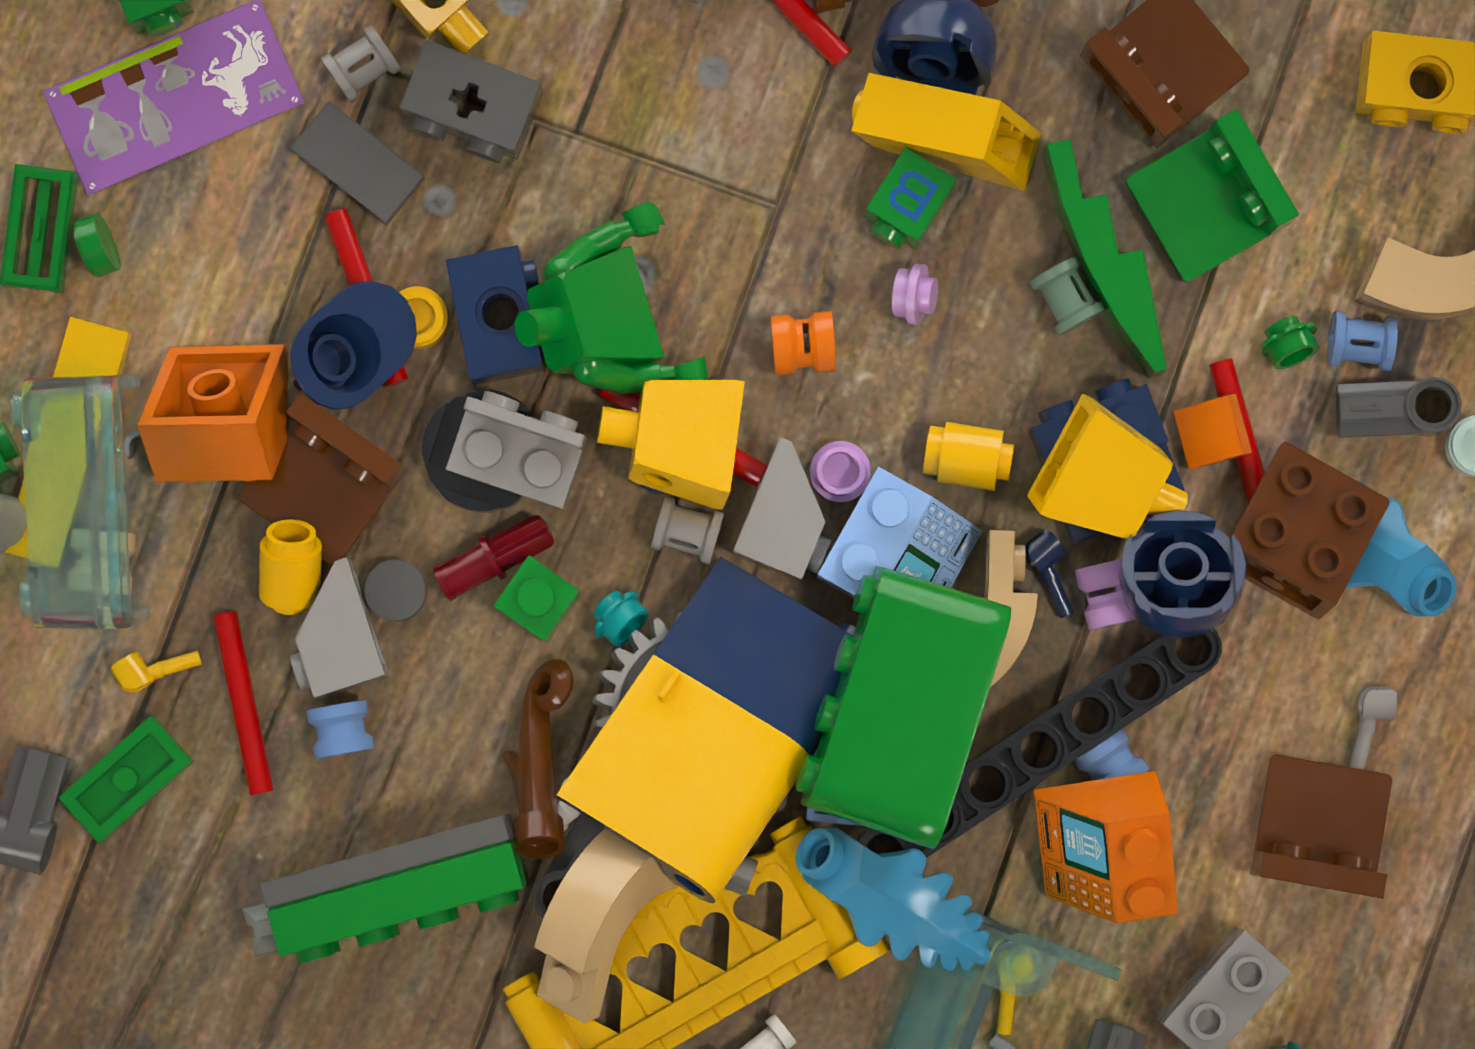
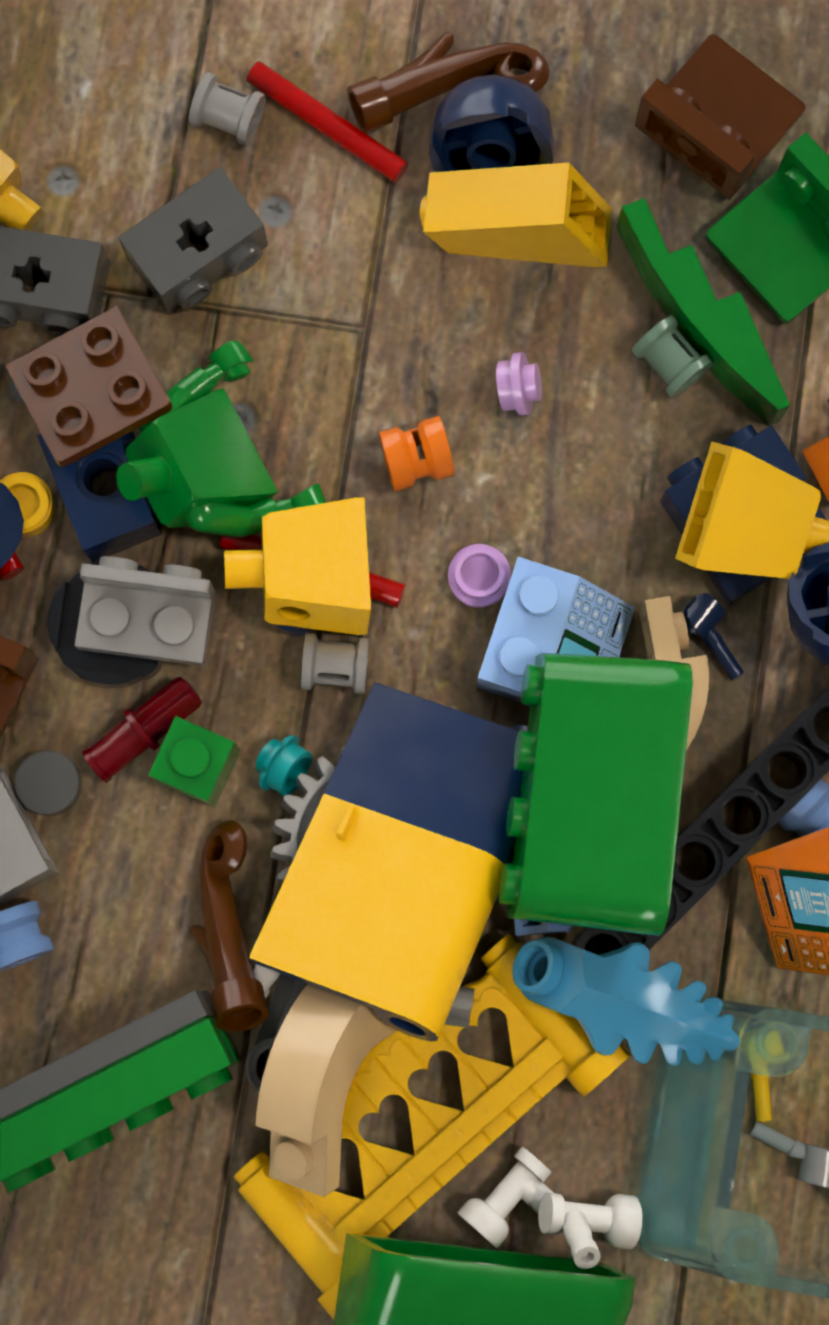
camera: 10 degrees left, 5 degrees down
(504, 225) = (89, 387): none -> reddish brown bracket
(648, 66) = (213, 216): none -> dark grey brick
(784, 519) = (432, 633): light grey slope -> none
(908, 200) = (494, 292): green brick -> none
(968, 456) = (605, 534): yellow brick -> none
(1103, 608) = (782, 658): lavender wheel -> none

